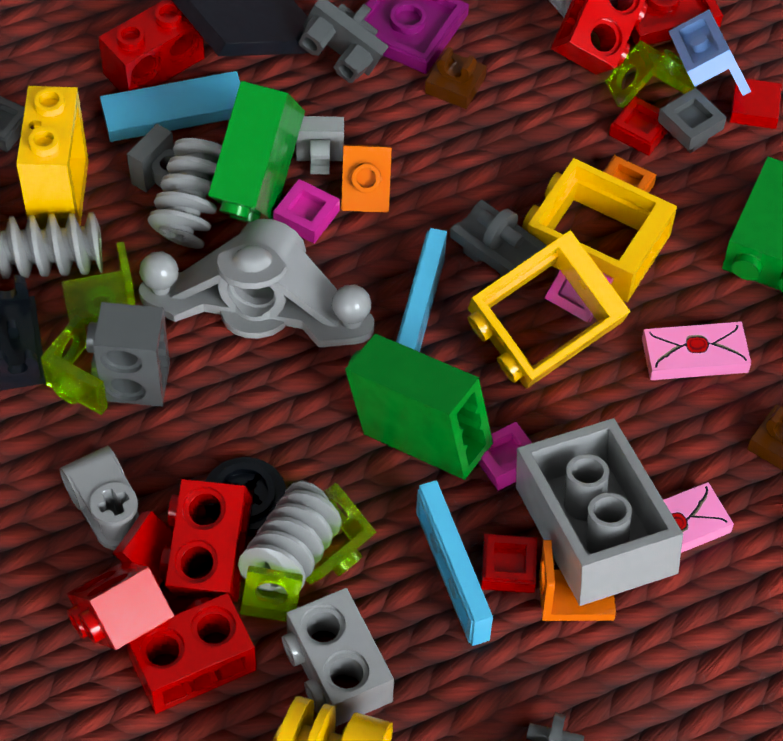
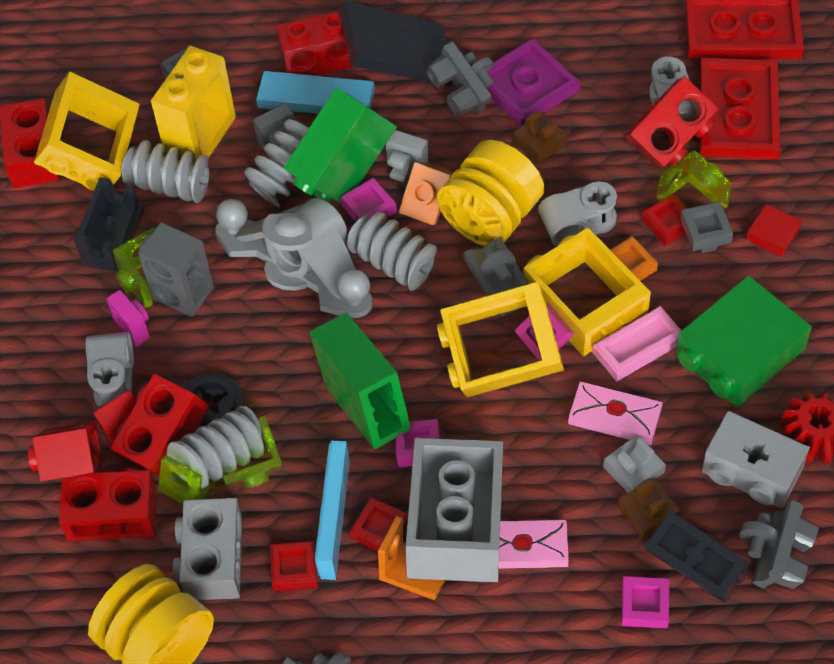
camera: 30 degrees right, 0 degrees up
(85, 294) = (191, 218): clear neon green bracket -> none
(94, 428) = (129, 316): none -> dark pink plate
(366, 252) = (392, 249): none -> light grey piece
(423, 290) = (415, 301): medium azure tile -> none
(437, 642) = (293, 566): none -> red tile
(447, 153) = (490, 192): none -> yellow wheel
(546, 146) = (575, 210): none -> light grey piece
(679, 268) = (637, 343): none -> bright pink tile
(705, 50) = (747, 172): light blue panel -> none
(745, 398) = (634, 464): none -> light grey tile

